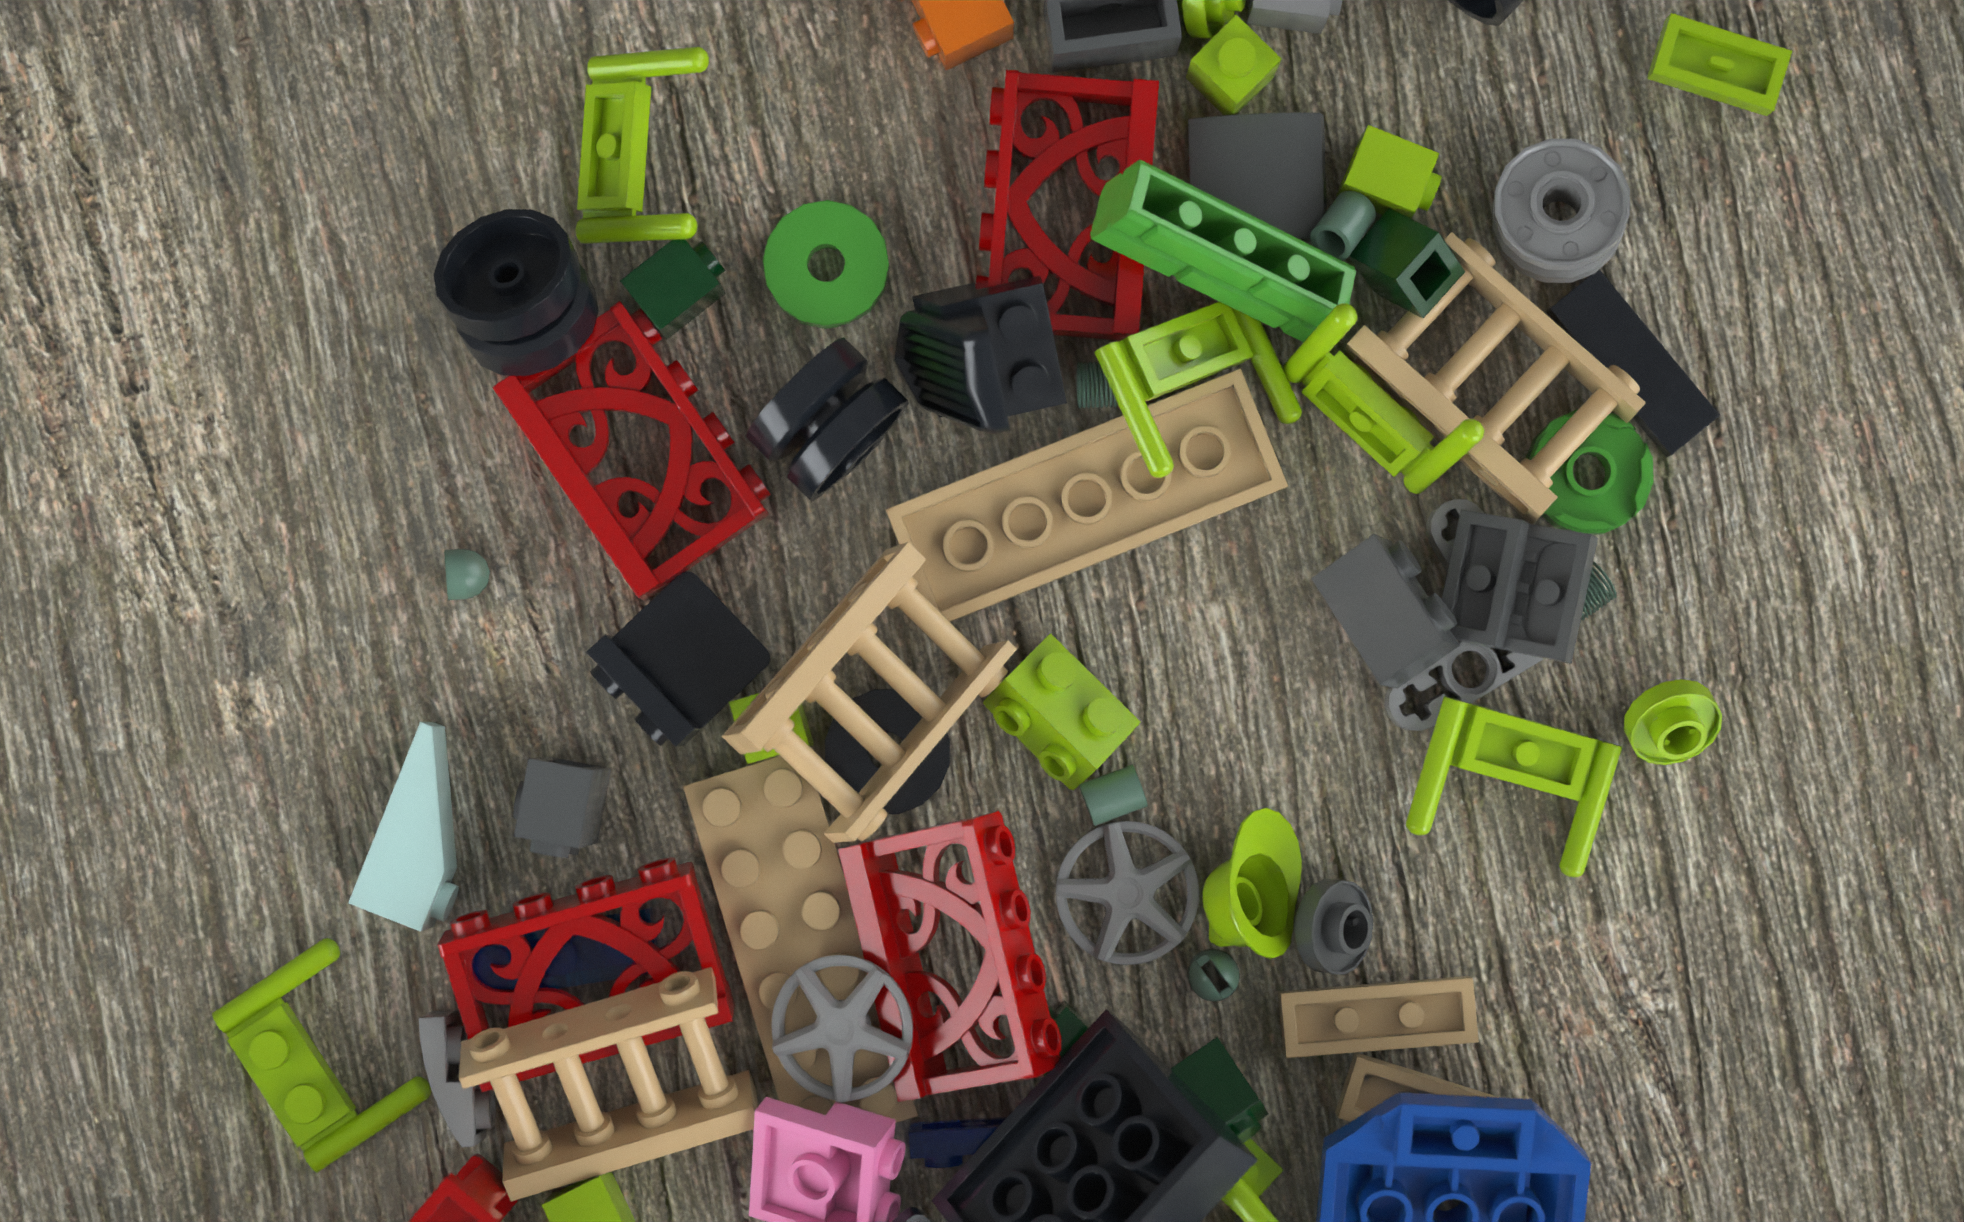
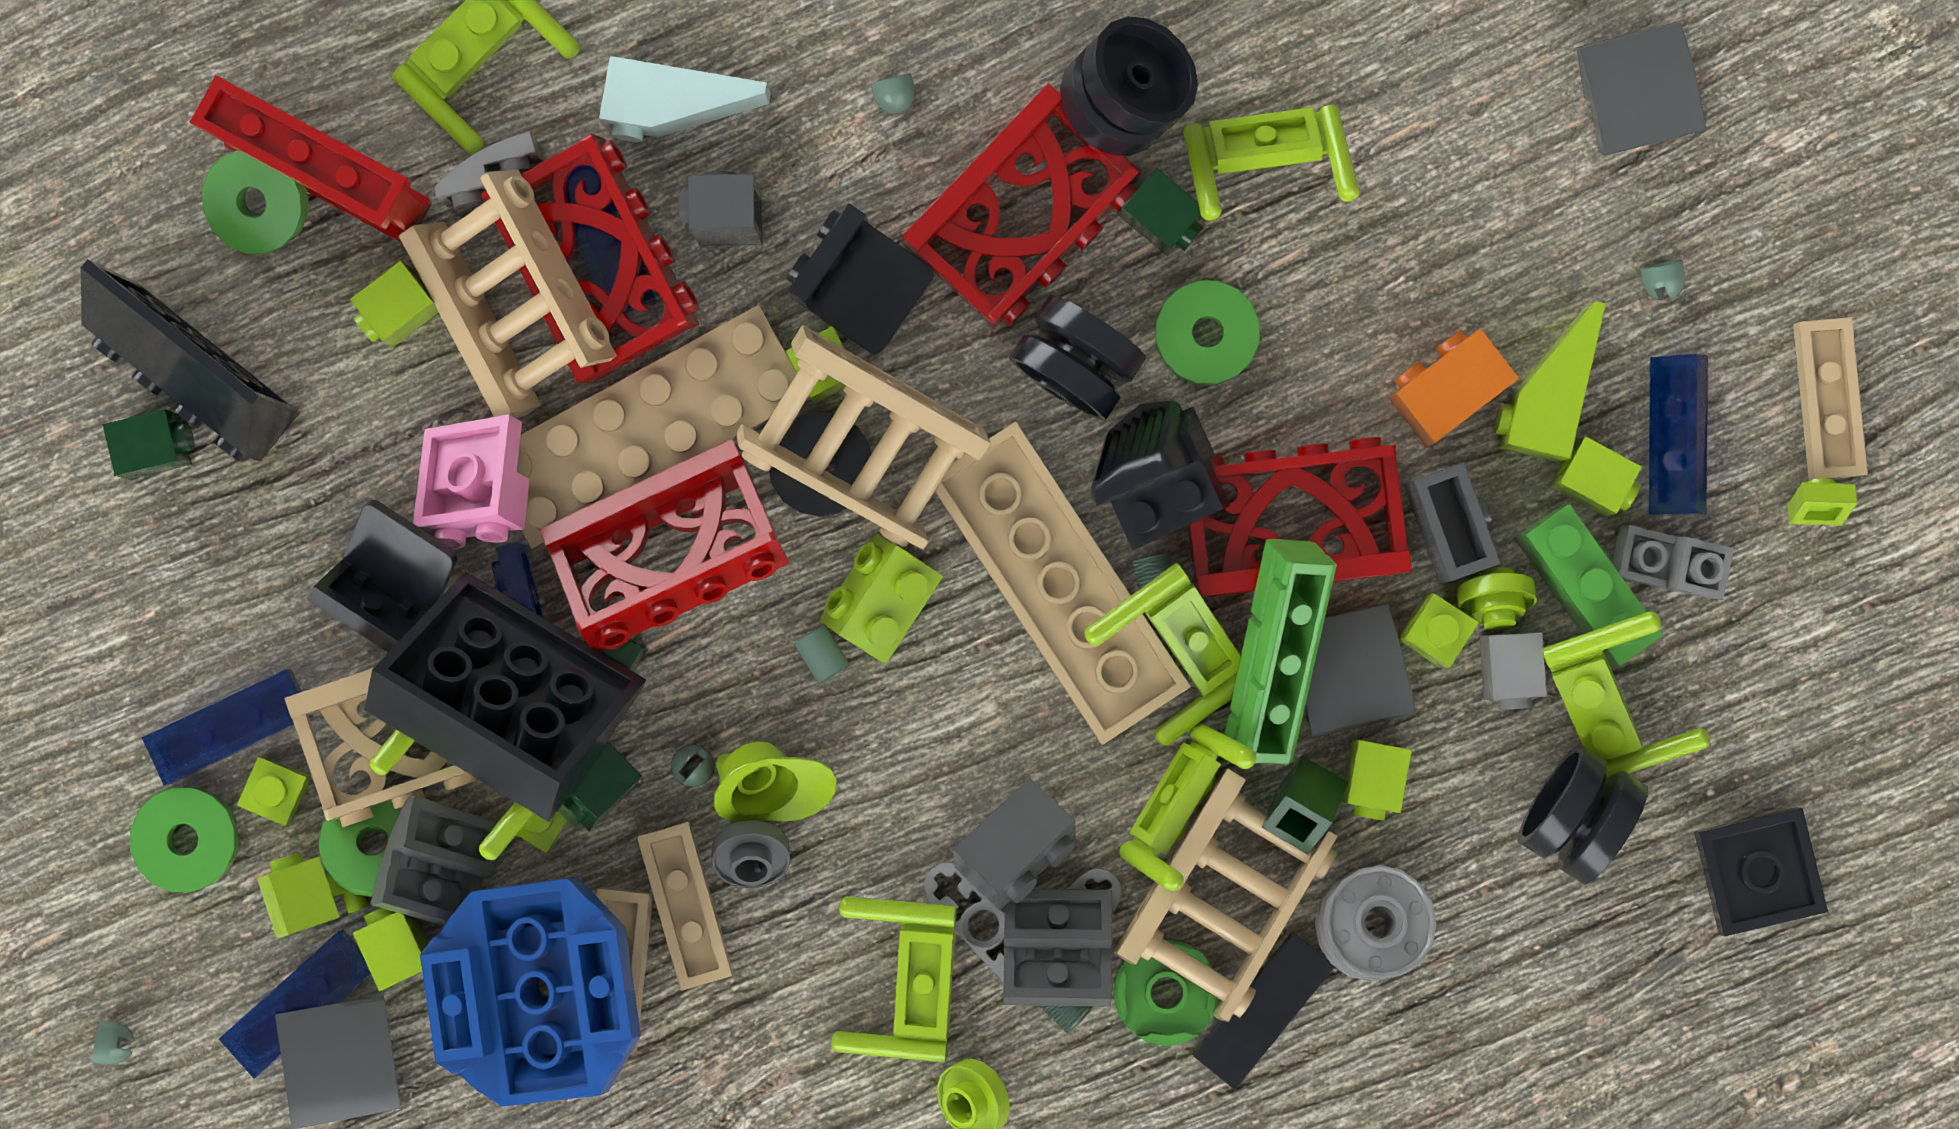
camera: 80 degrees right, 0 degrees up
(841, 1028) = (588, 470): light grey wheel -> none
(1127, 893) = (744, 681): light grey wheel -> none
(1343, 224) = (1325, 747): sand green hinge -> none
(1719, 64) = (1526, 1033): lime plate -> none

